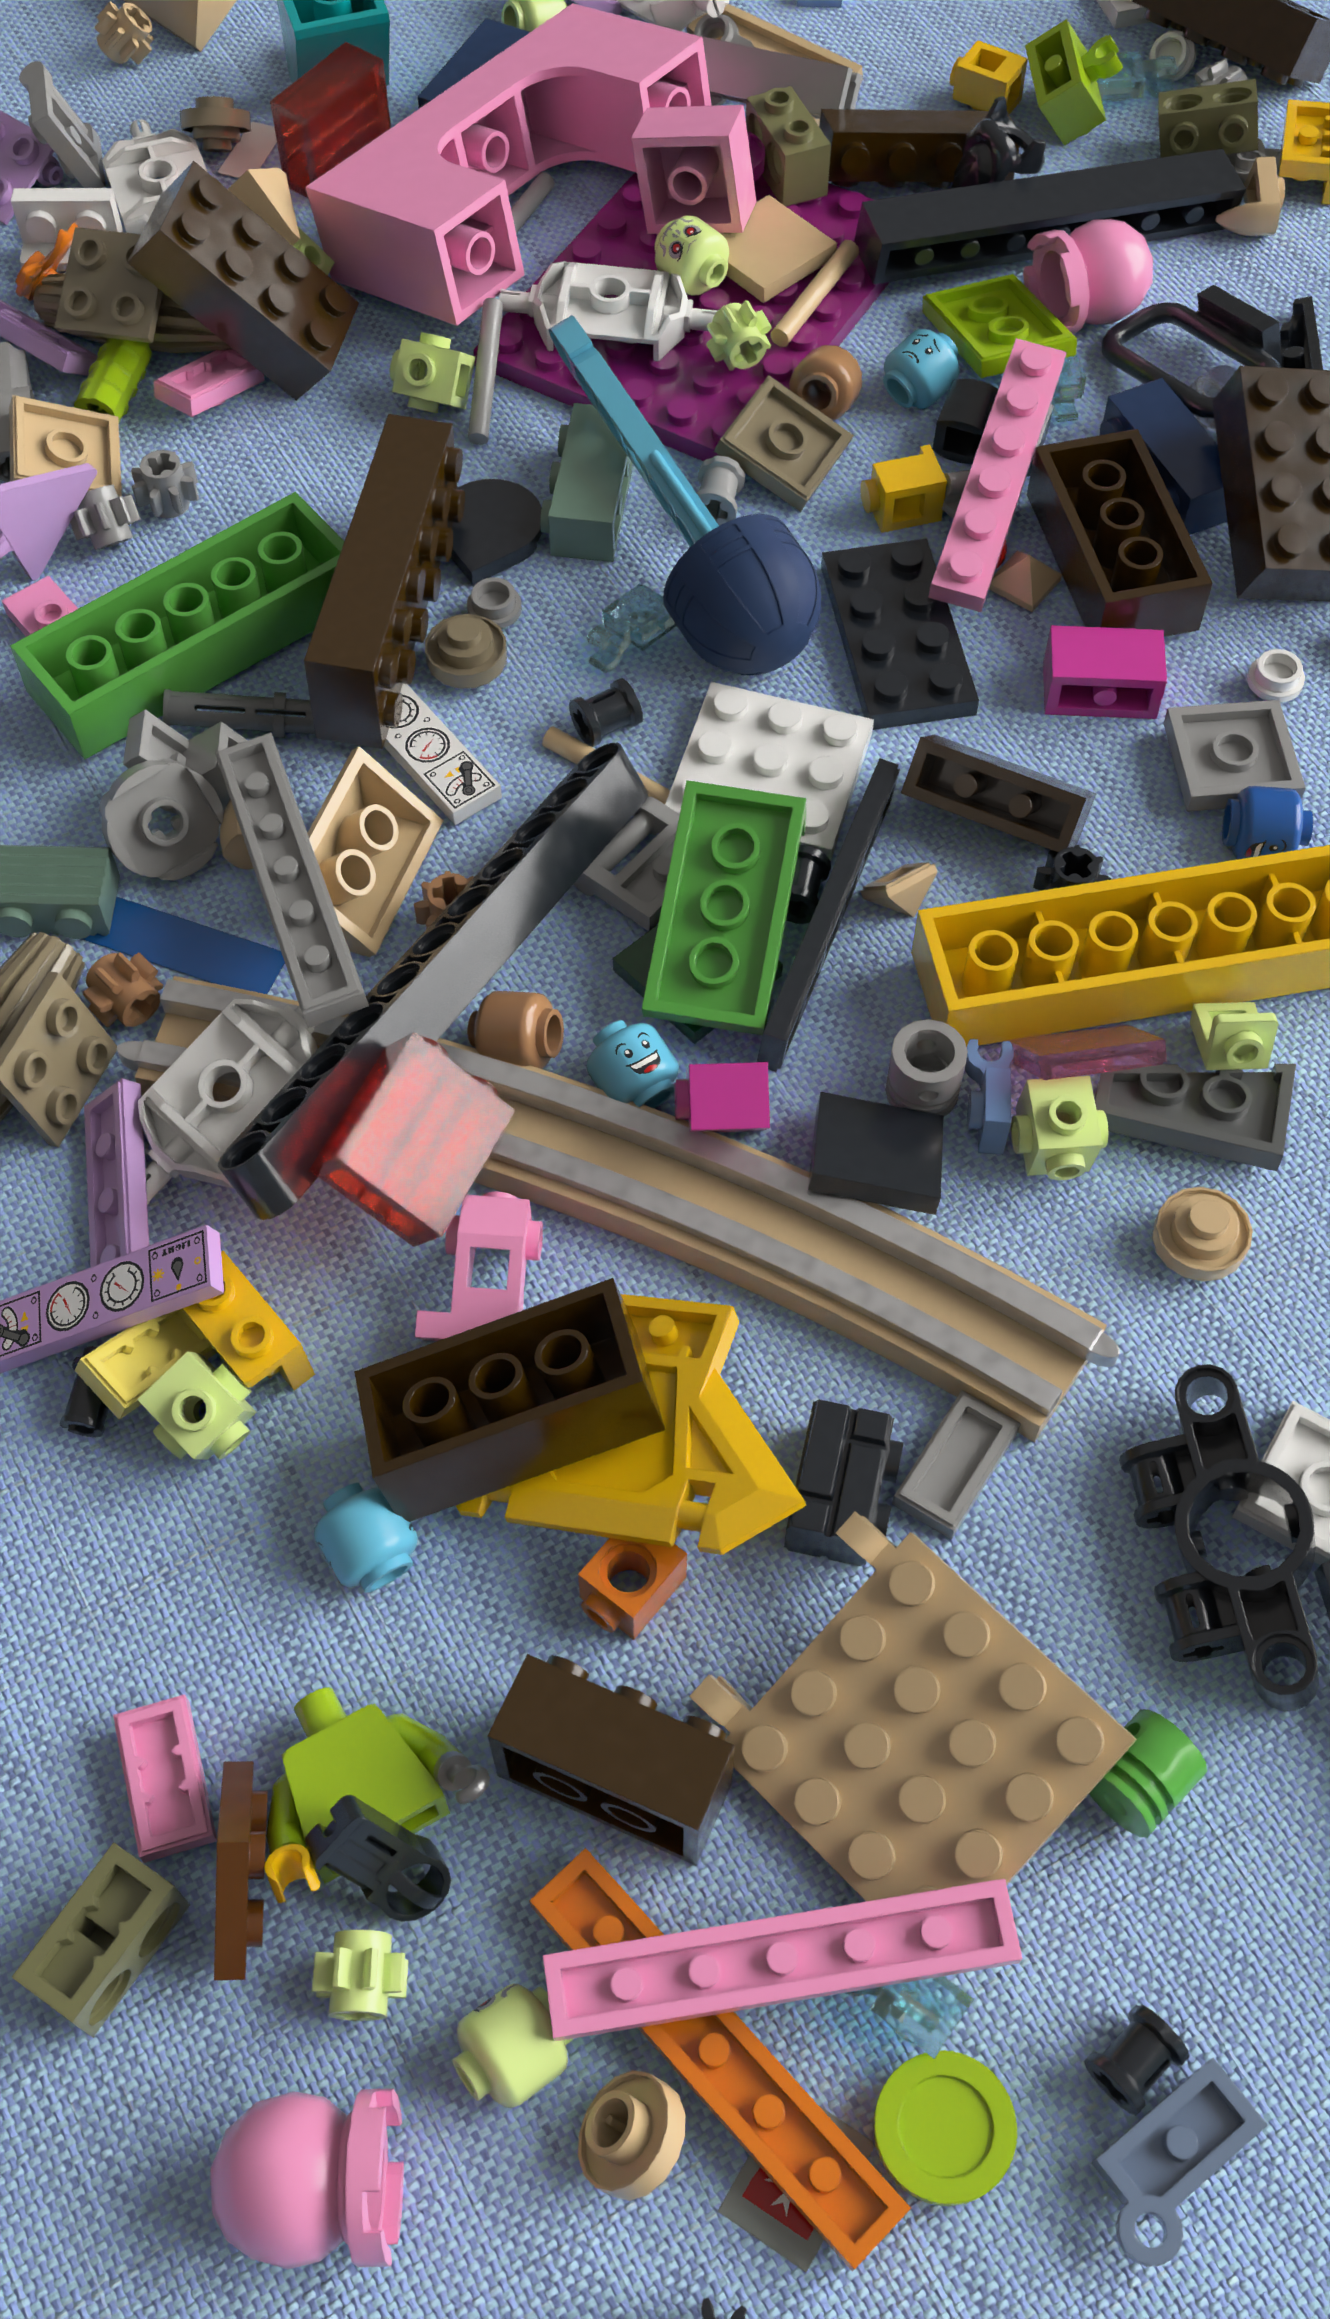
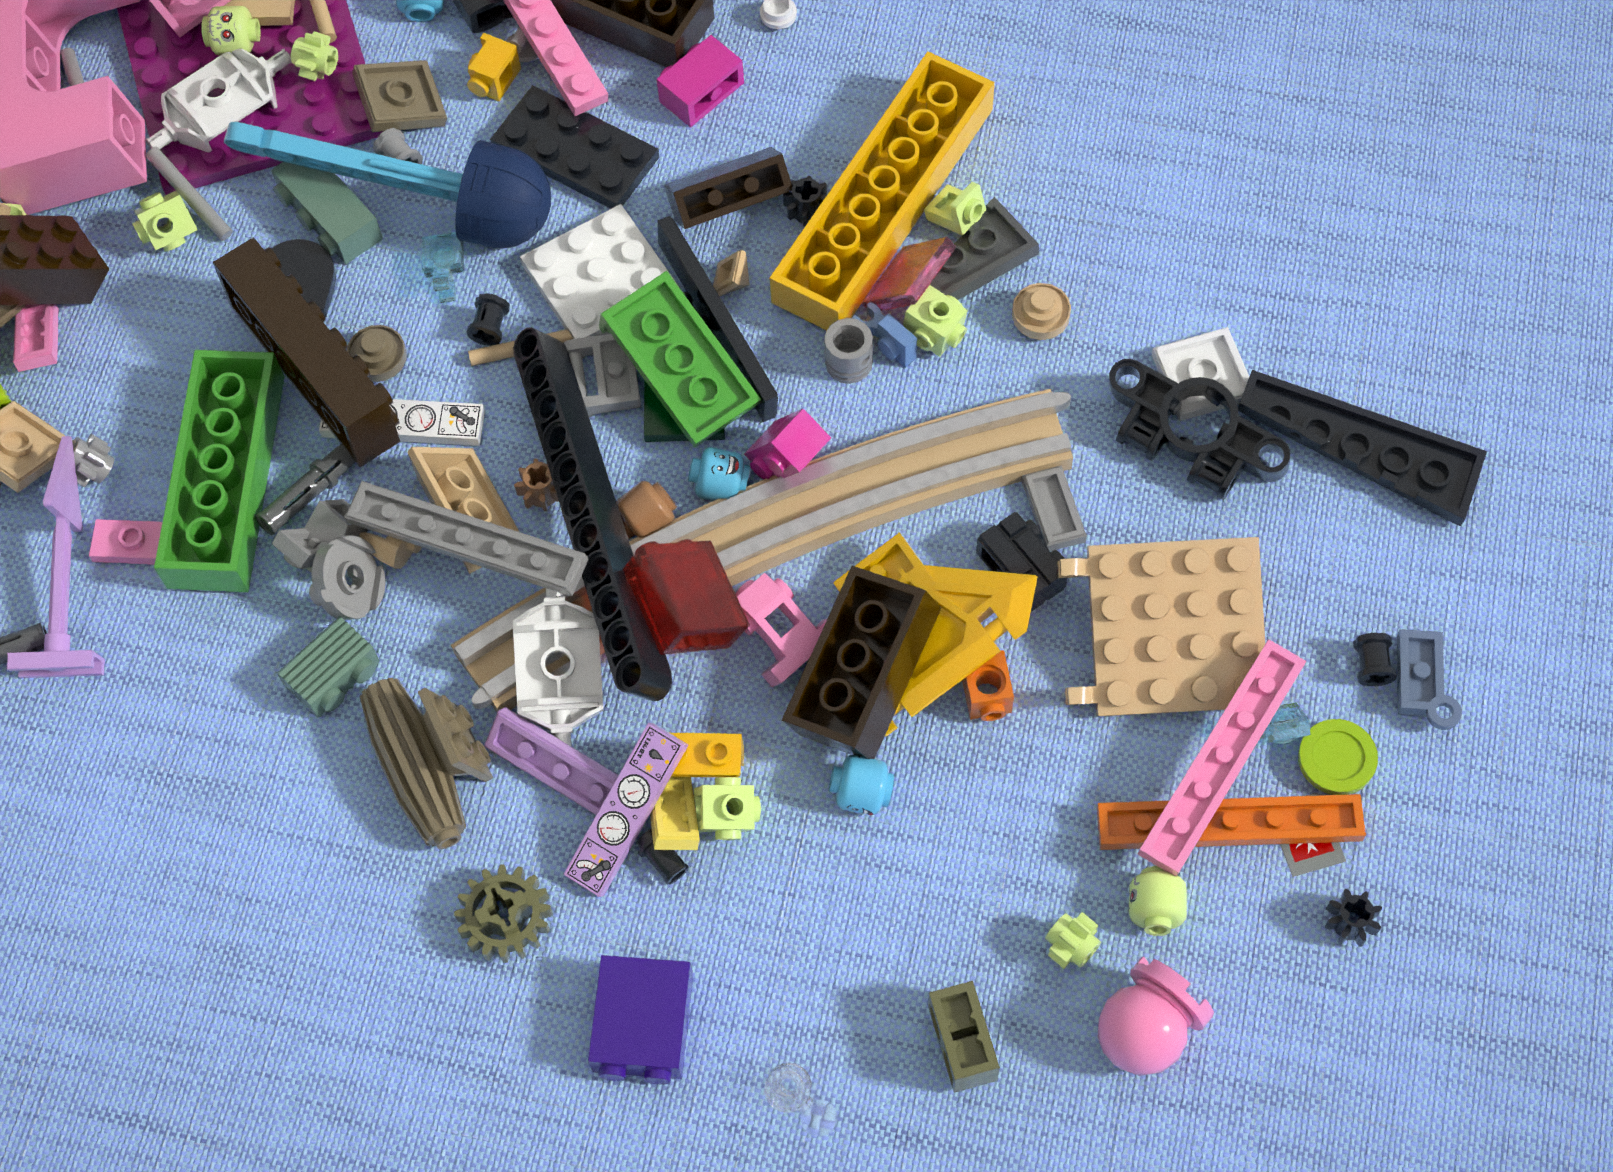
camera: 45 degrees left, 5 degrees up
(123, 989) = (434, 672): medium nougat gear -> none
(164, 1778) = (900, 961): bright pink plate -> none
(165, 484) = (93, 412): light grey gear -> none
(191, 948) = (431, 627): blue sticker -> none
(239, 1859) = (982, 947): reddish brown plate -> none
(373, 1854) = (1032, 889): black piece -> none
(378, 1759) = (985, 876): lime torso -> none
(495, 600) = (355, 315): light grey plate -> none
(613, 1756) = (1073, 755): dark brown brick -> none
(631, 2135) = (1238, 880): tan plate -> none
(828, 380) = (380, 41): medium nougat head -> none
(877, 1153) = (872, 408): black tile -> none
(1024, 580) = (605, 63): tan slope -> none
(1150, 1775) = (1273, 549): bright green piece -> none
(1228, 749) = (804, 70): light grey plate -> none
(1266, 822) = (858, 92): blue head -> none

